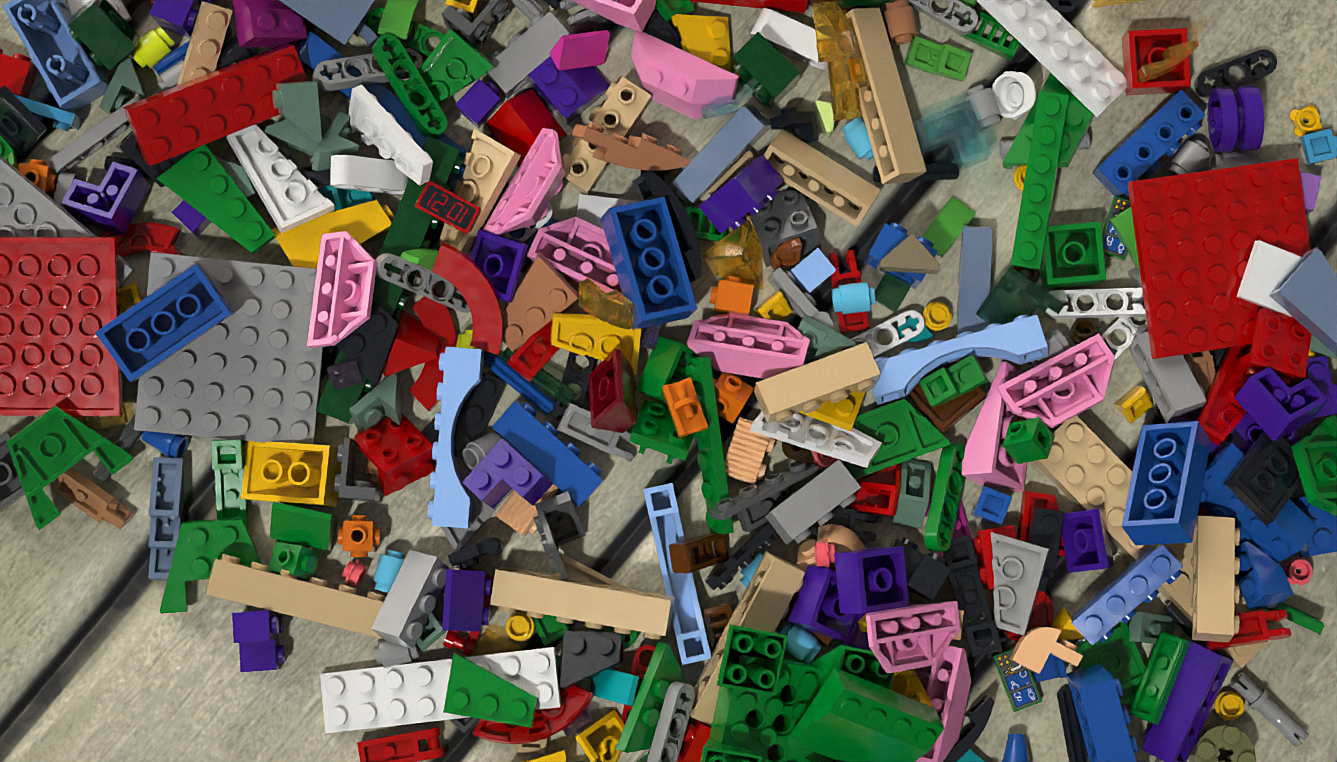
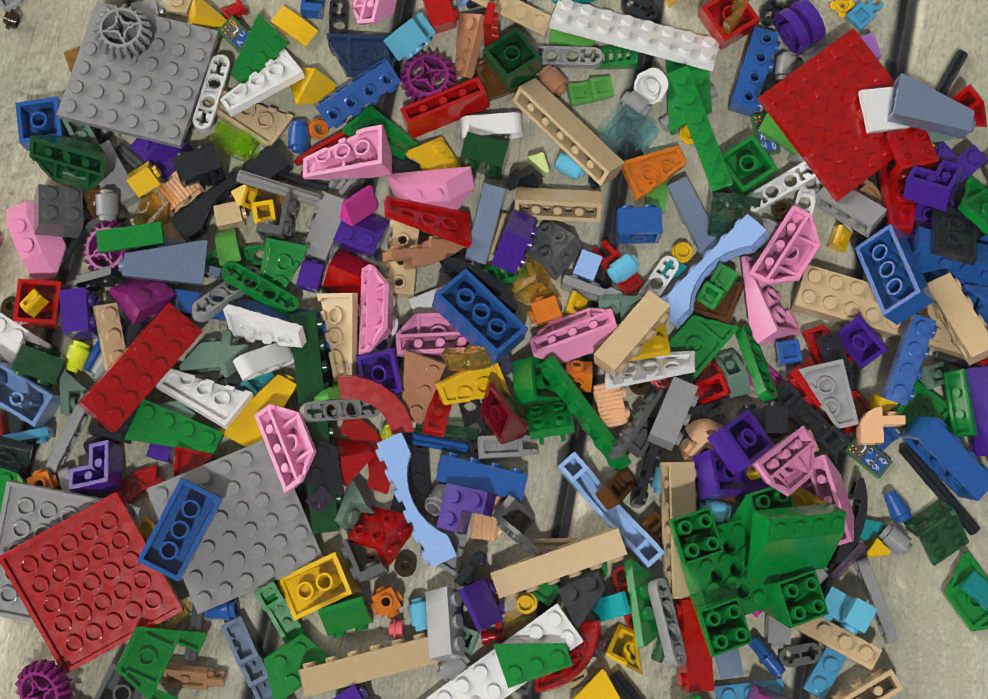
camera: 20 degrees left, 5 degrees down
(219, 245) = (190, 459): none -> red slope
(295, 559) = (352, 640): green brick -> none
(300, 106) = (195, 340): sand green slope -> none
(413, 506) = (412, 565): none -> dark brown plate
(447, 207) = (328, 352): tile -> none
(661, 117) = (433, 219): none -> red wing
(684, 407) = (555, 396): orange hips -> none
(720, 109) = (470, 193): clear light blue tile -> none
(787, 254) = (564, 264): dark orange tile -> none
(824, 554) = (700, 442): coral plate -> none
(845, 64) = (526, 115): clear yellow slope -> none
(890, 292) = (644, 252): clear green tile -> none
(909, 257) = (647, 220): dark tan slope -> none
(956, 197) = (652, 169): none -> orange wing
(1028, 440) = (788, 297): green brick -> none

